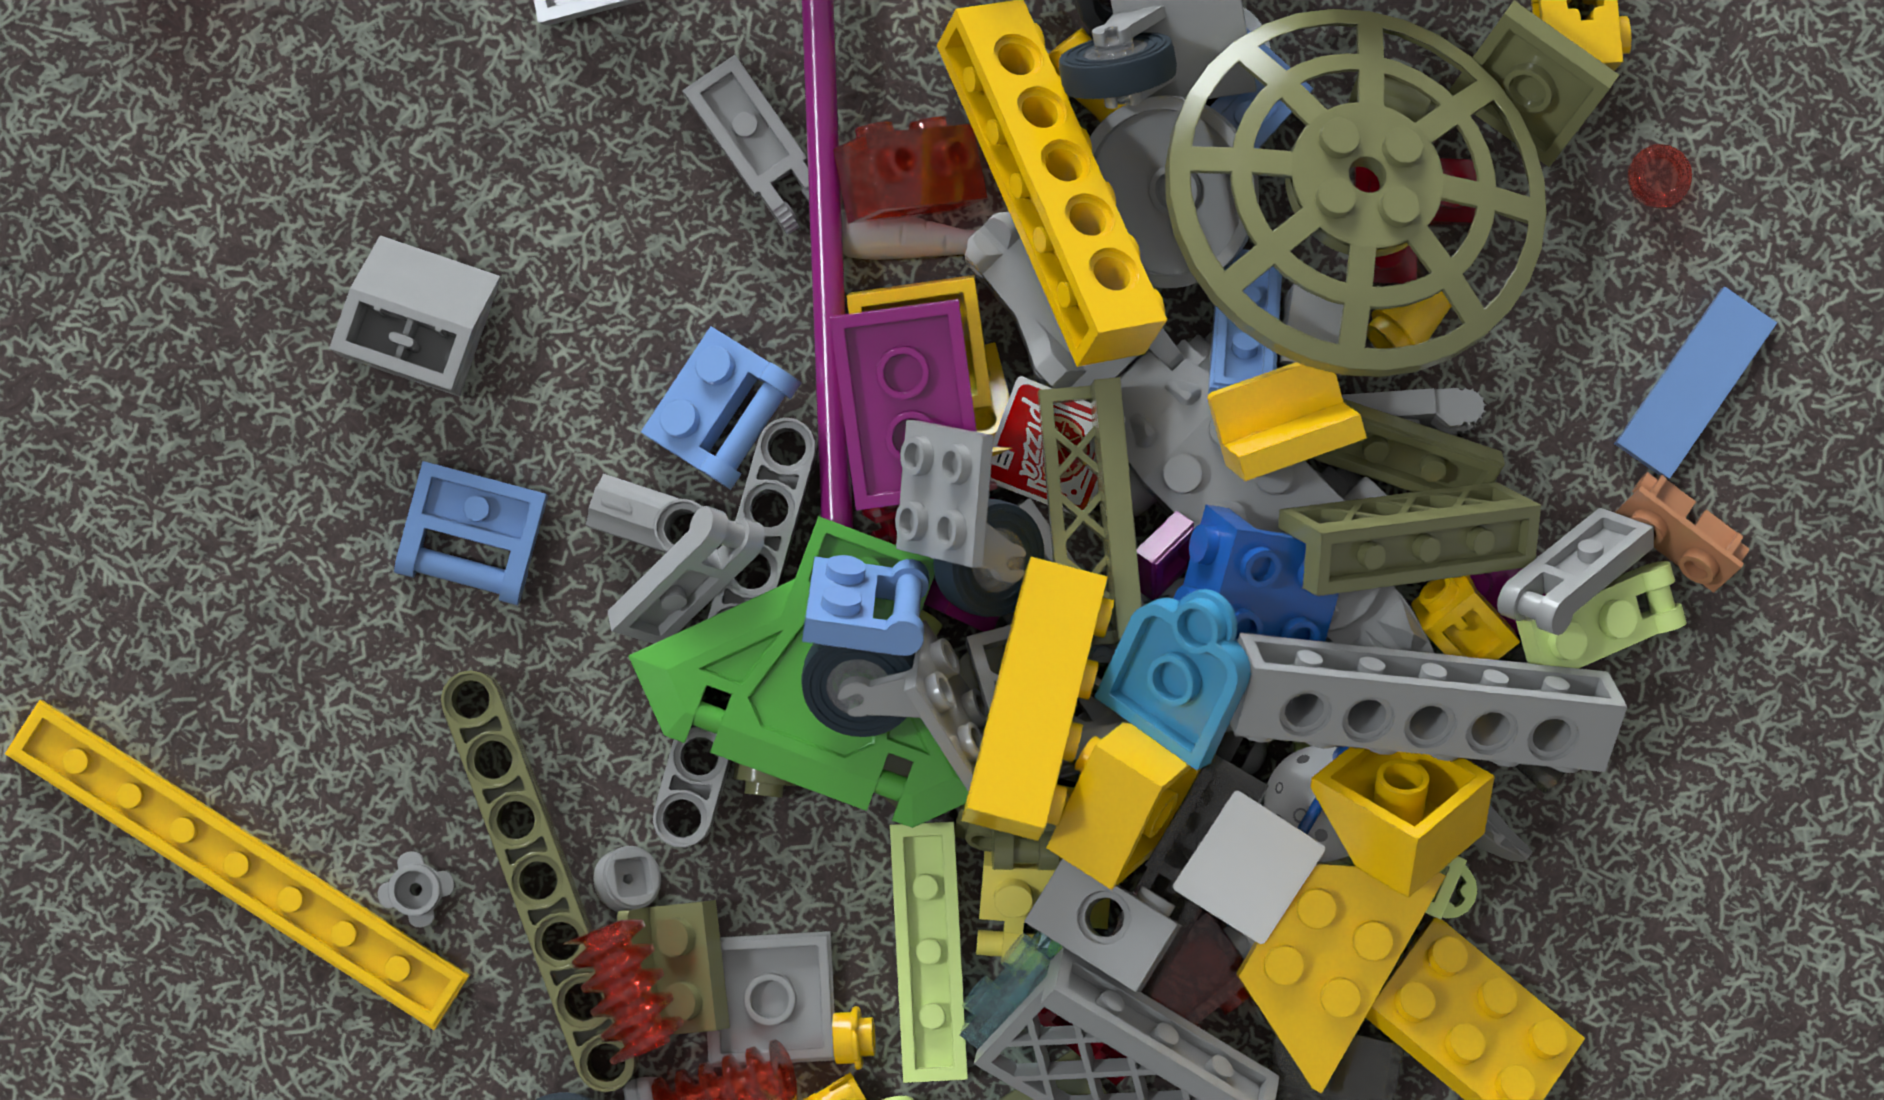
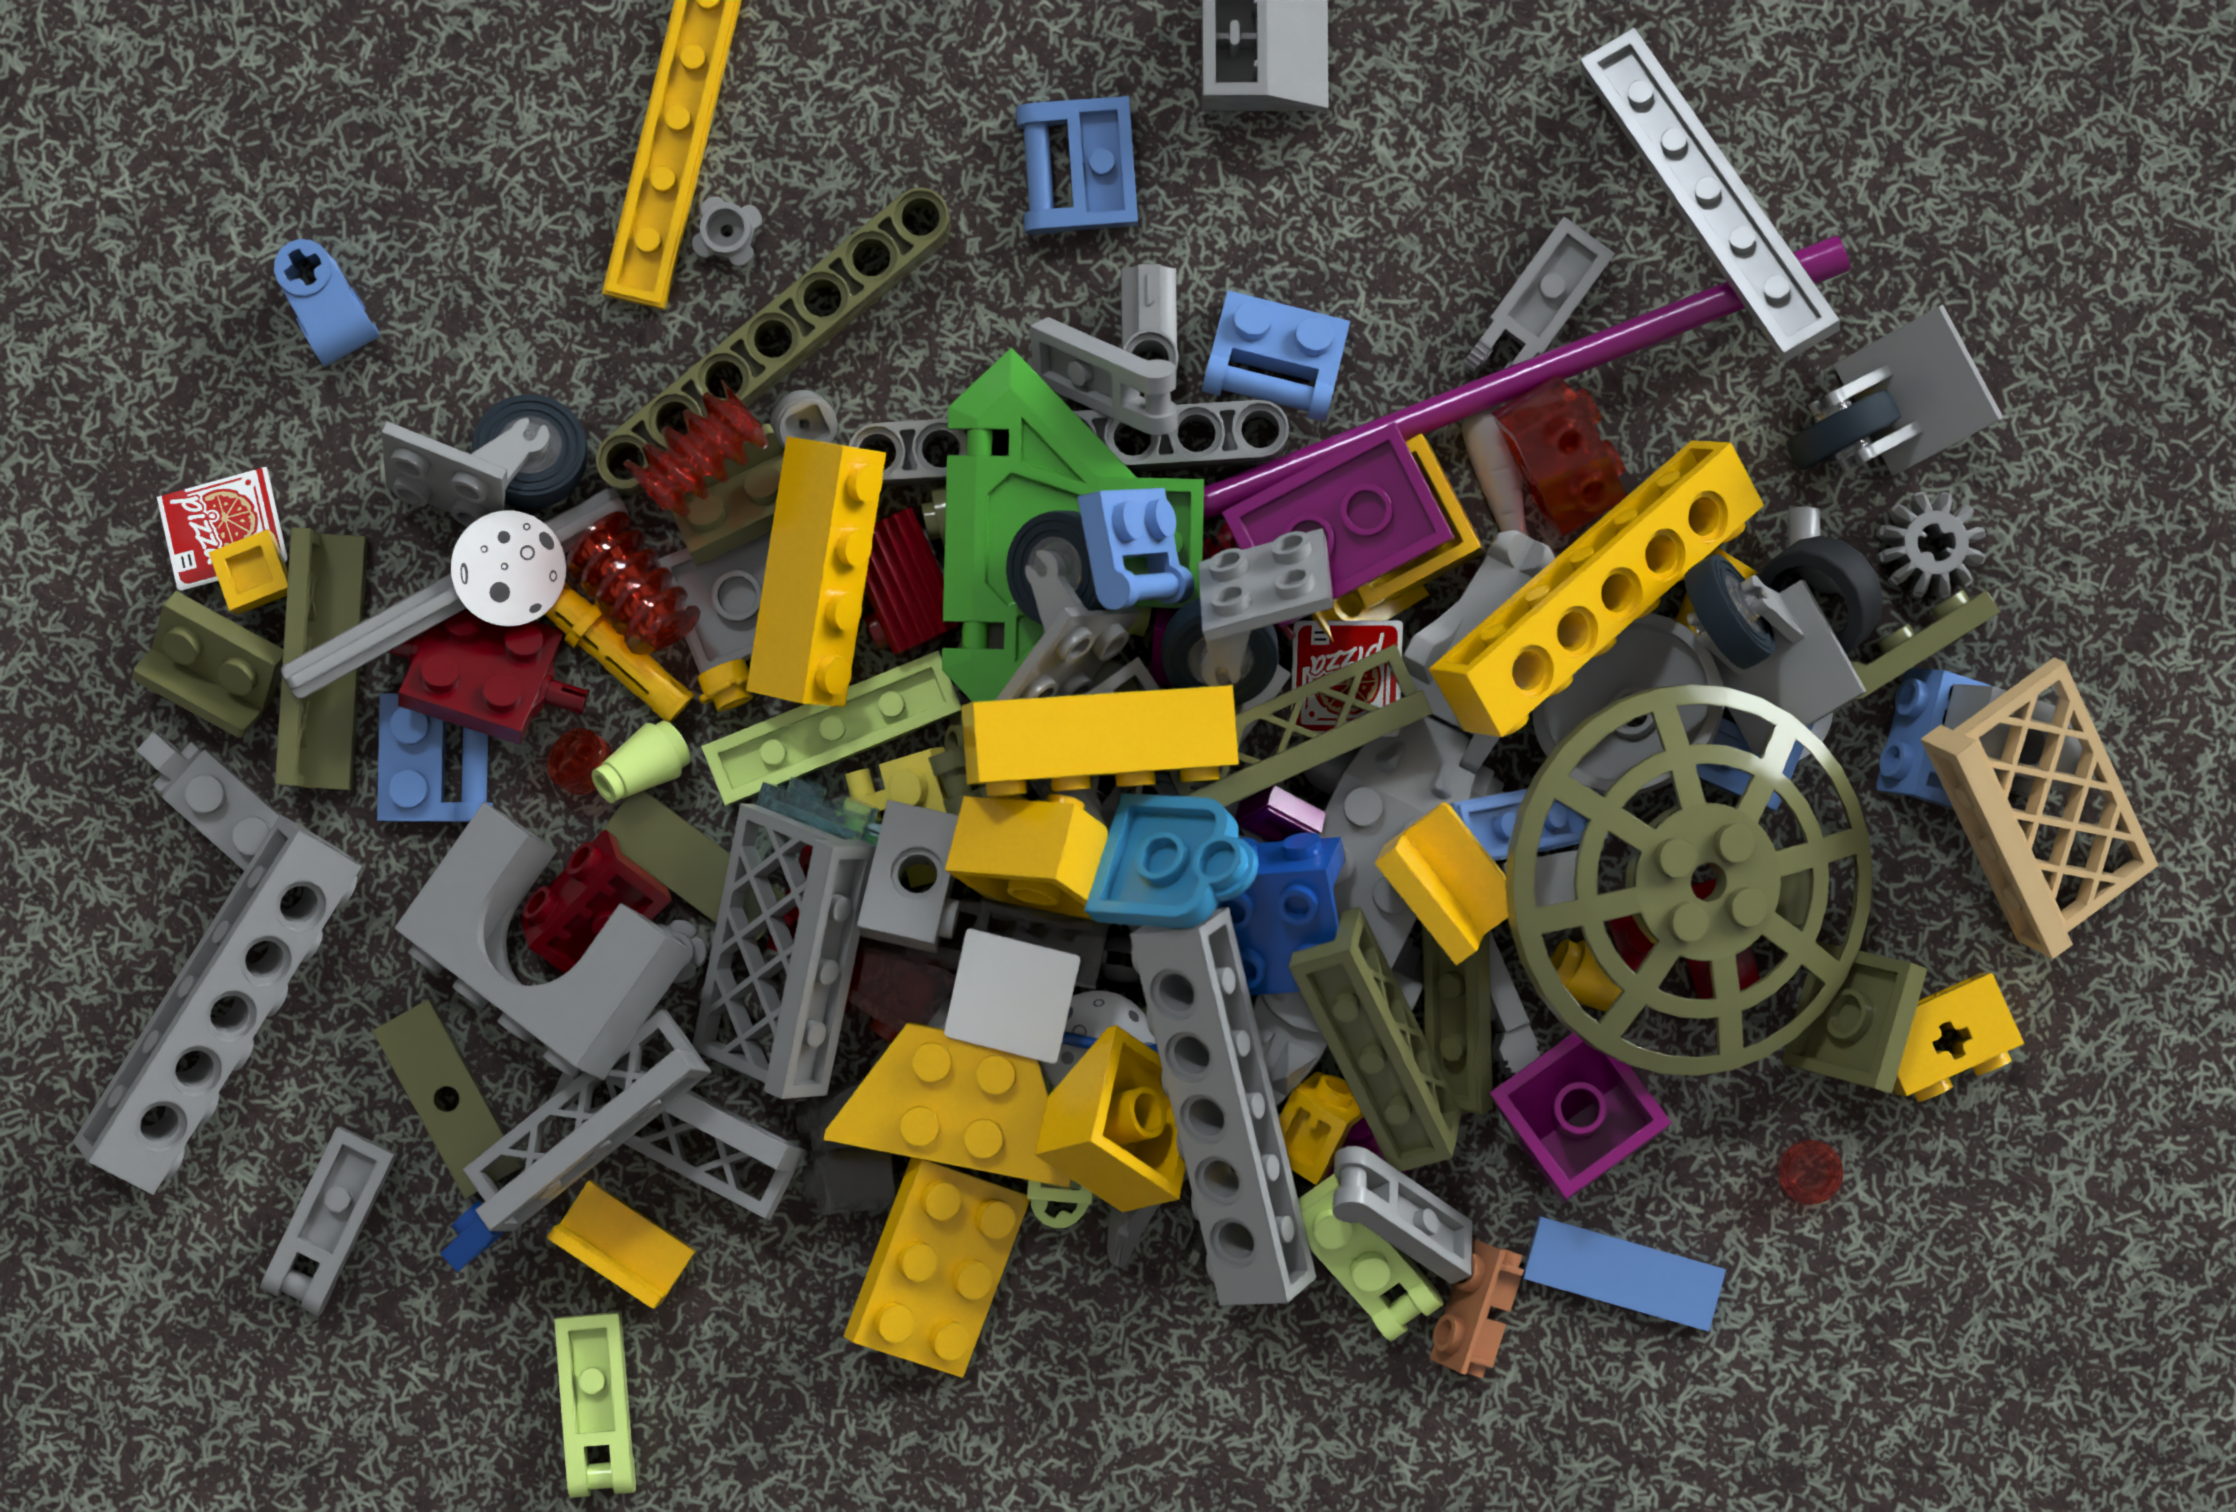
camera: 75 degrees right, 0 degrees up
(778, 915) = (816, 572): none -> yellow brick
(811, 839) = (904, 587): none -> dark red brick
(1537, 373) = (1578, 1114): none -> magenta slope

